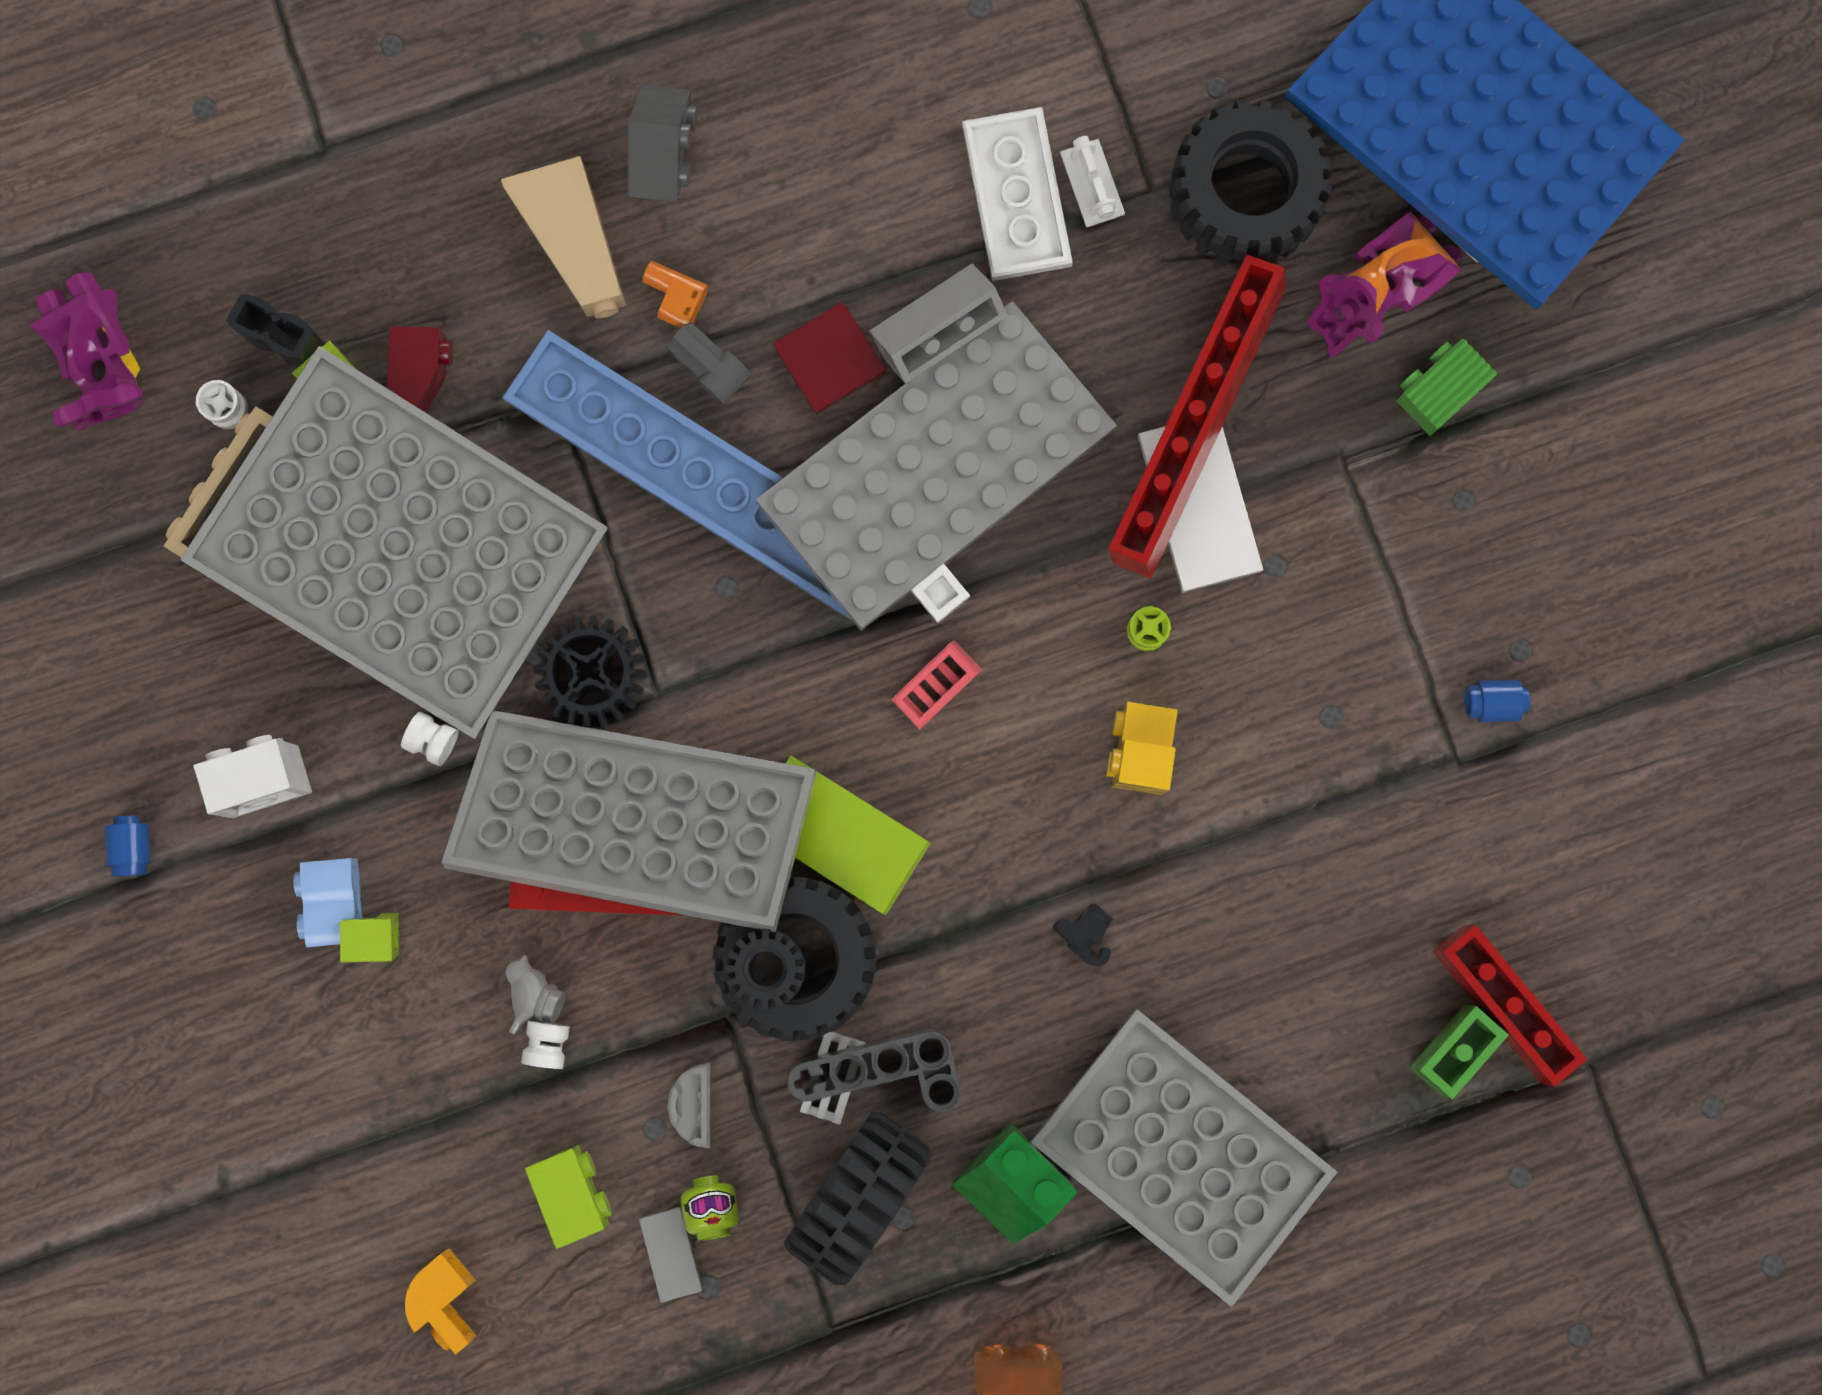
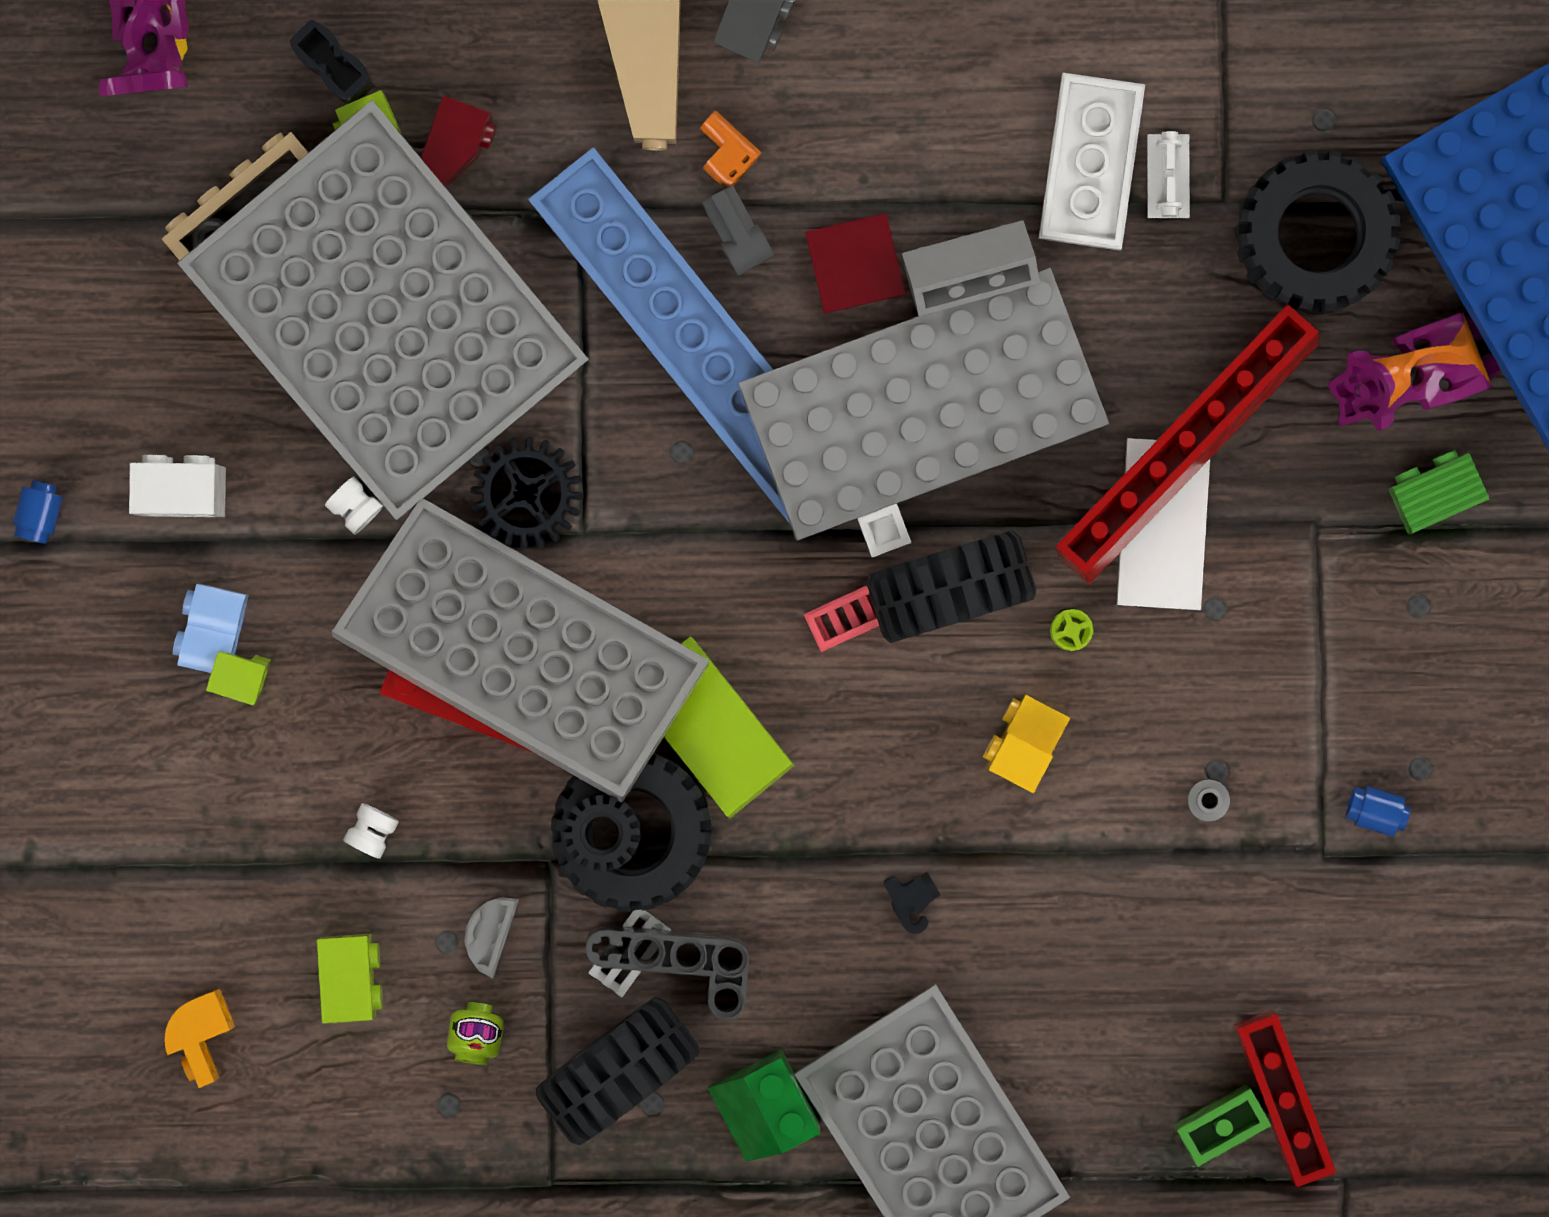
camera: 15 degrees right, 5 degrees up
(216, 398) = (252, 109): white wheel -> none
(532, 995) = (373, 780): light grey animal -> none
(670, 1254) = (424, 1063): light grey tile -> none
(1022, 618) = (951, 586): none -> black tyre
(1321, 750) = (1195, 797): none -> light grey plate

